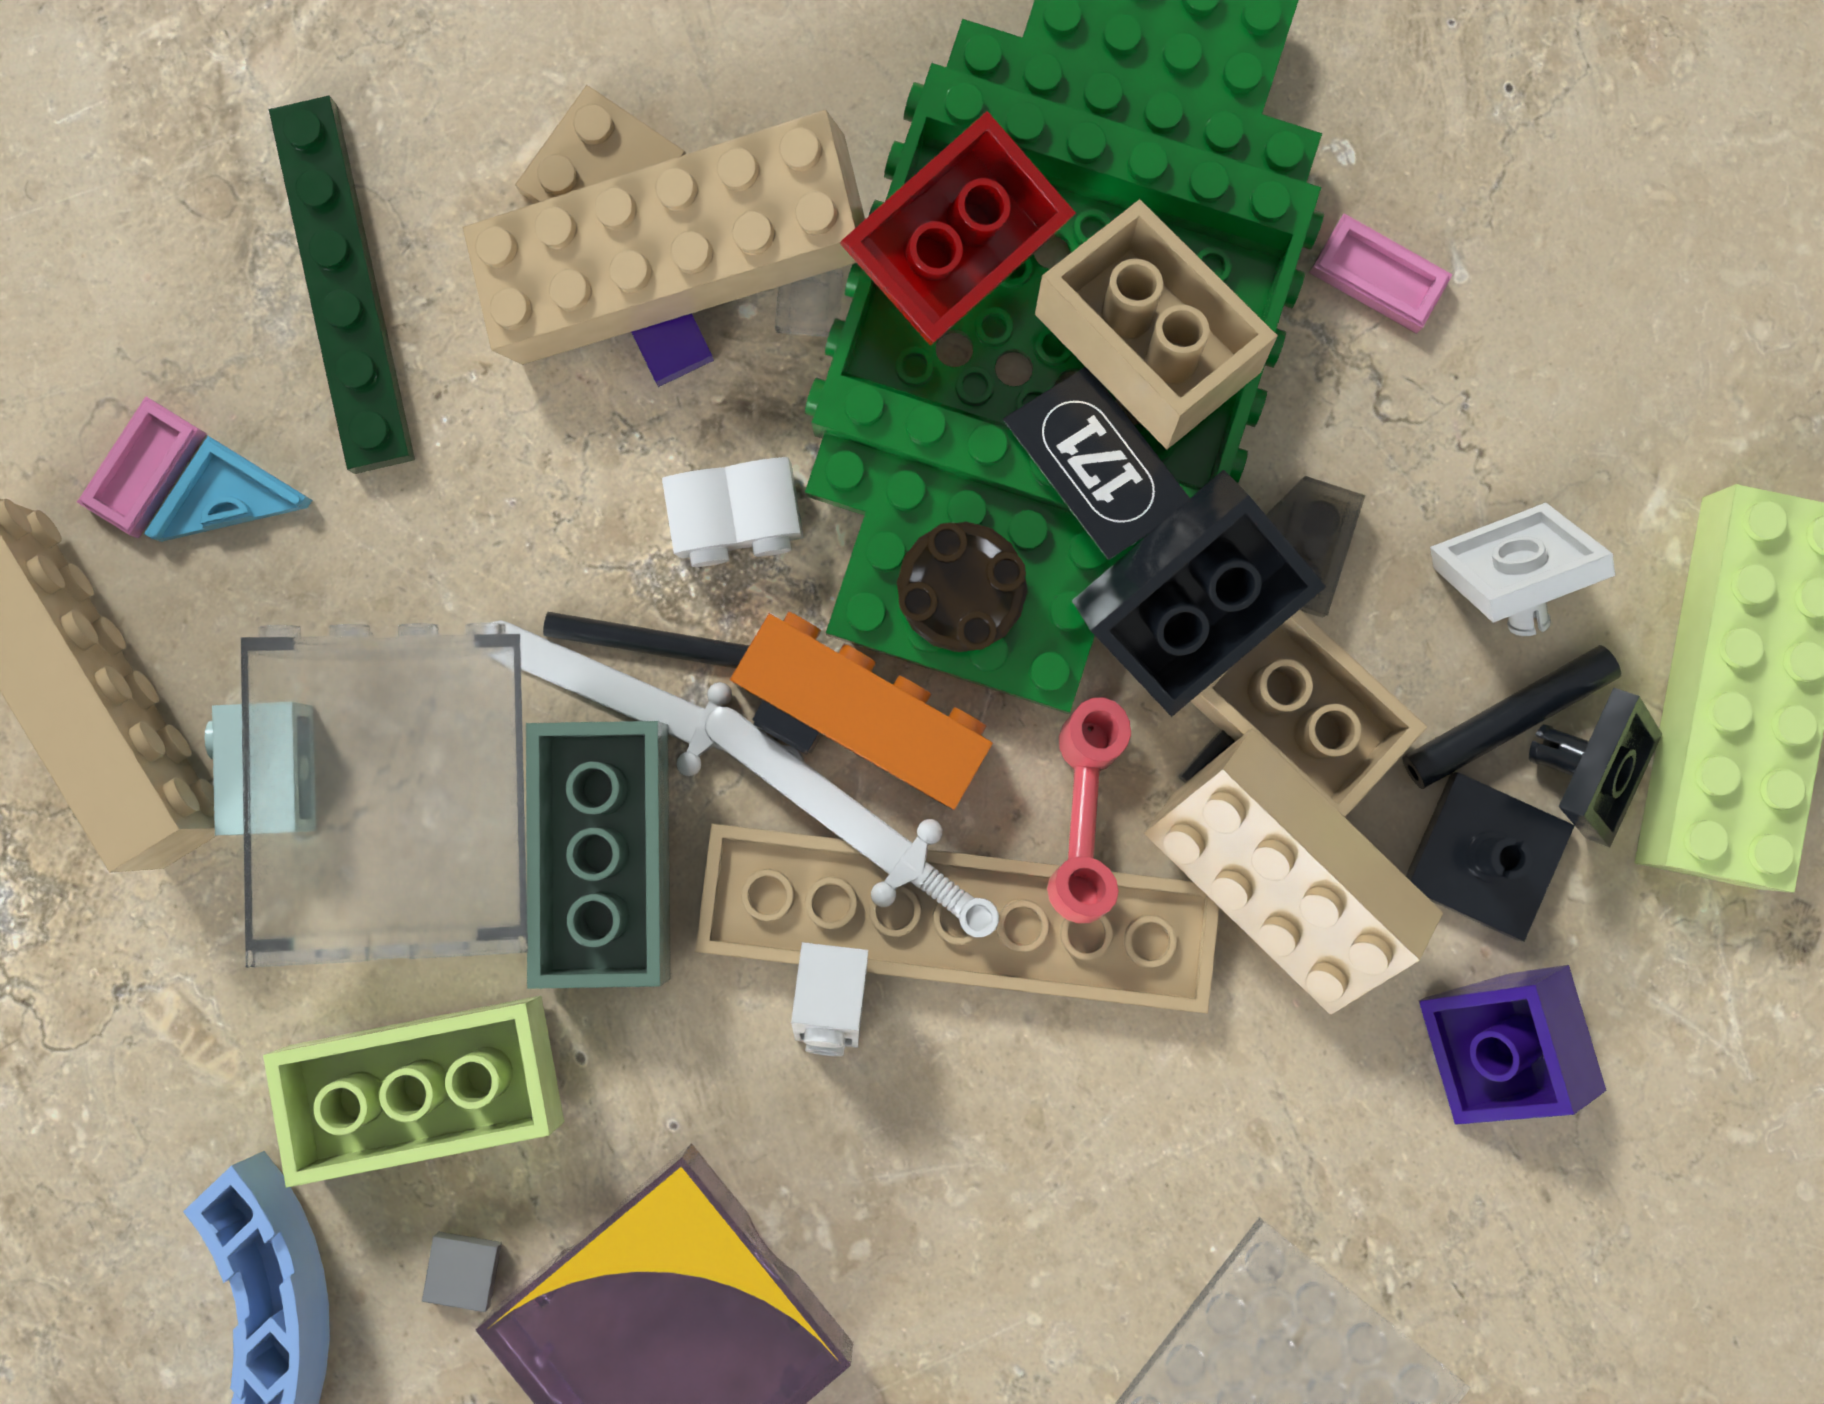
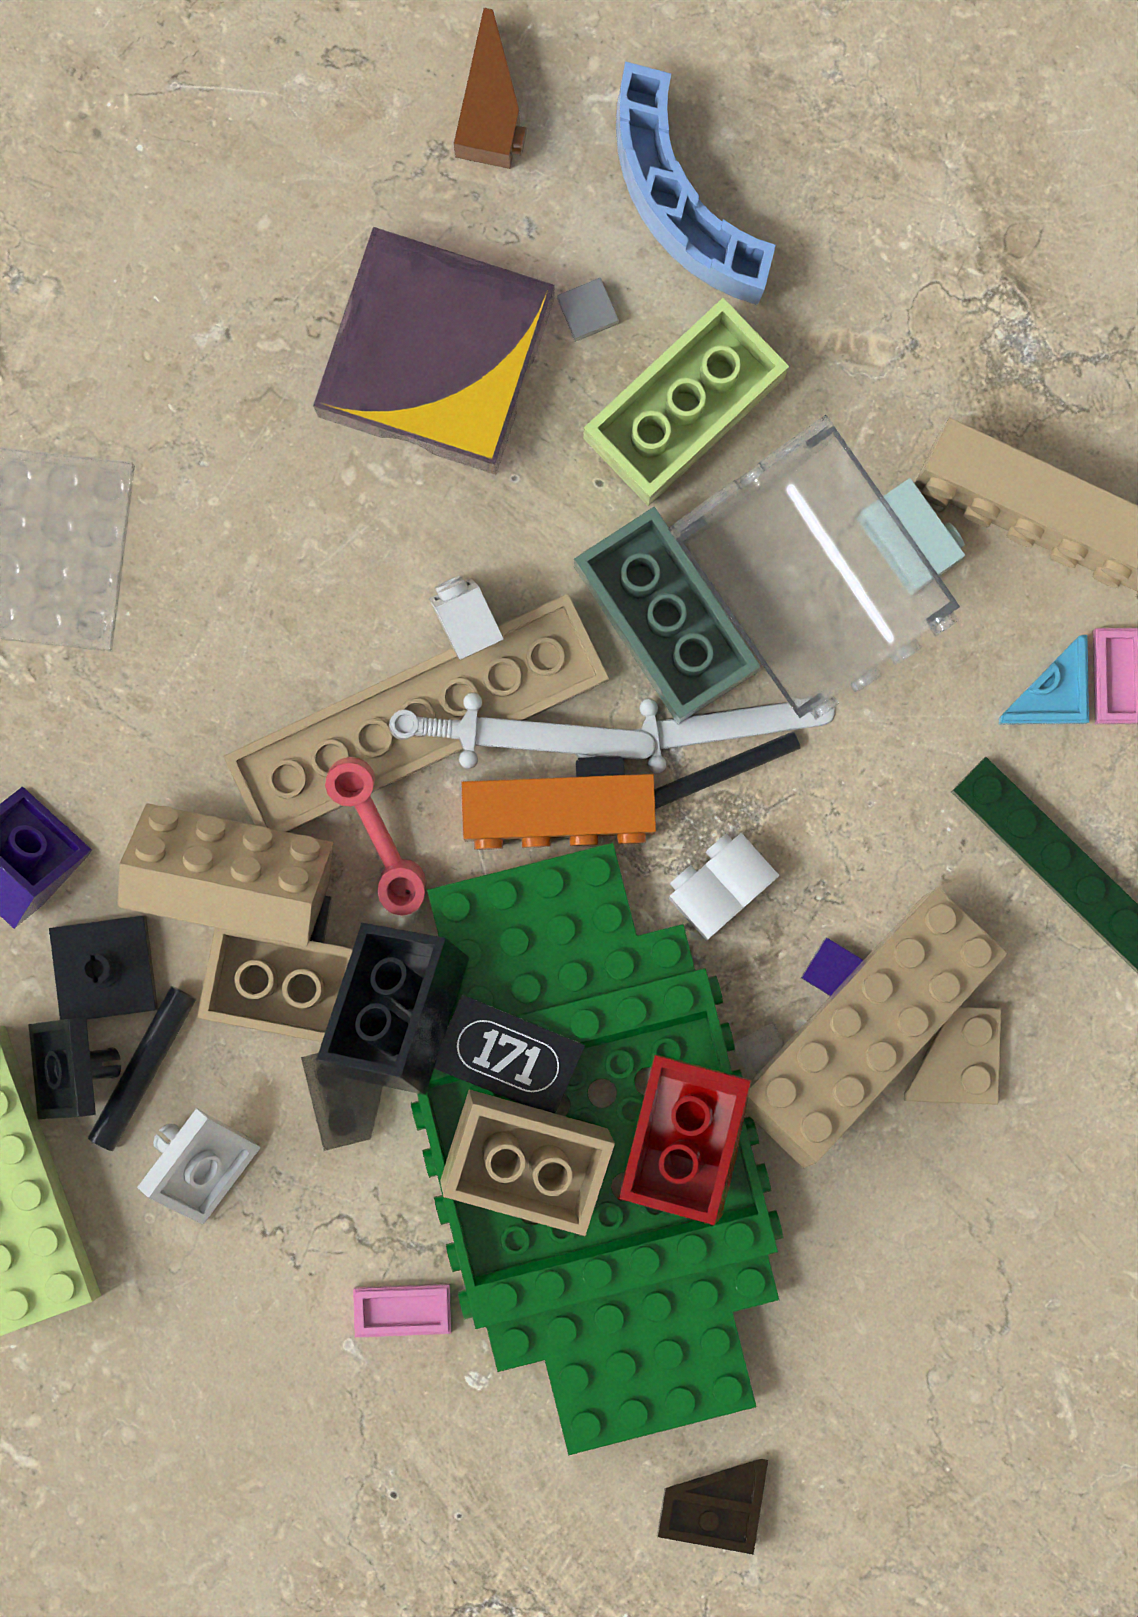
camera: 150 degrees right, 0 degrees up
(962, 586) = (543, 922): dark brown dish -> none

